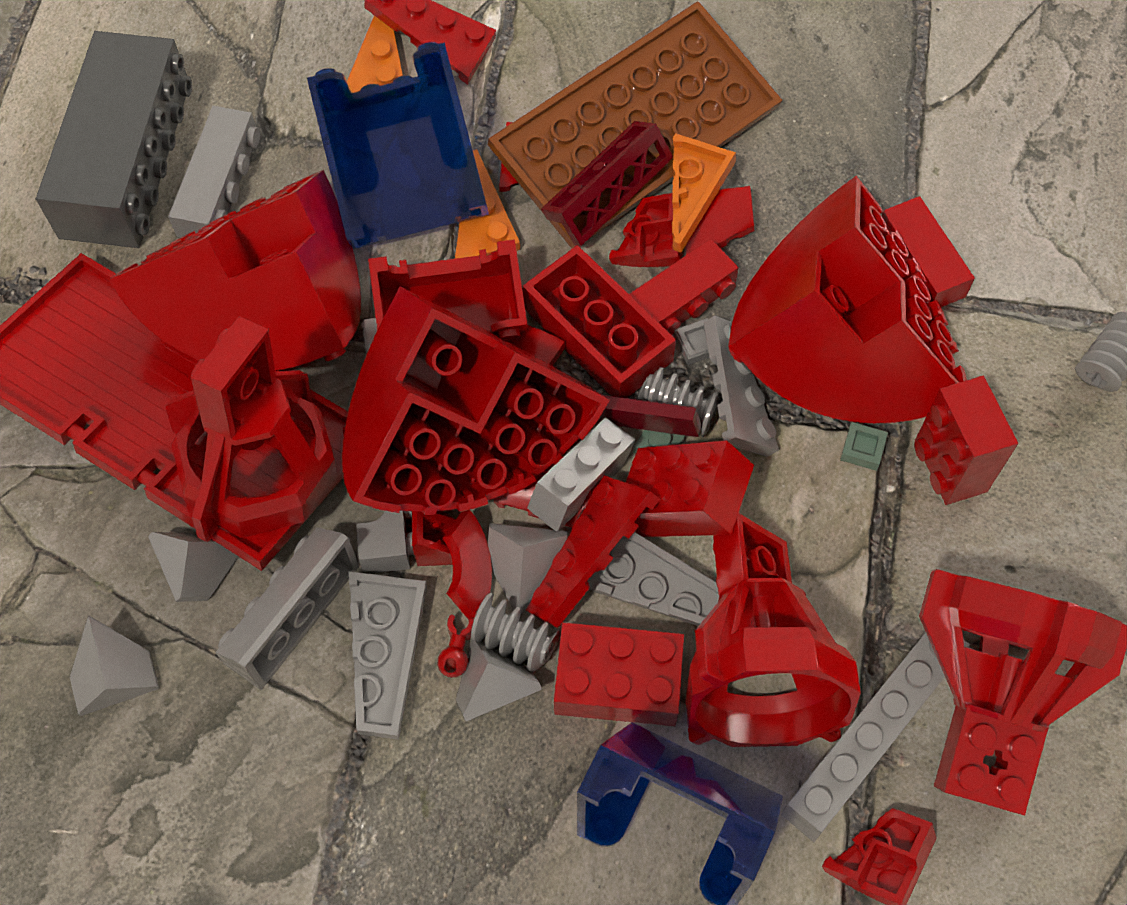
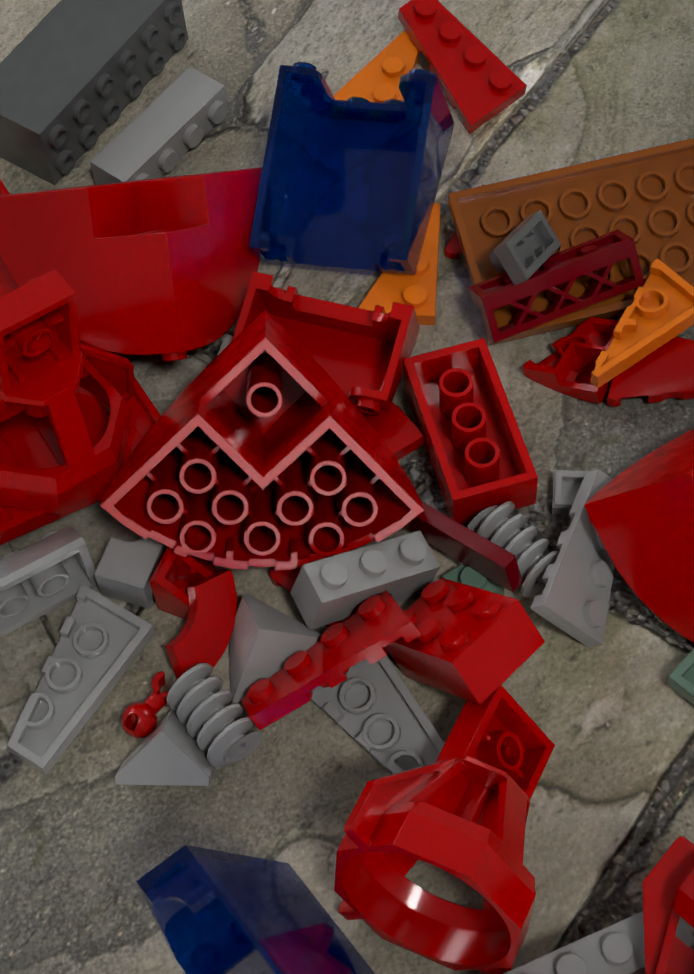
camera: 30 degrees right, 5 degrees down
(575, 162) = (525, 248): none -> dark grey tile
(619, 674) = (288, 803): red brick -> none
(688, 286) = (586, 430): red brick -> none

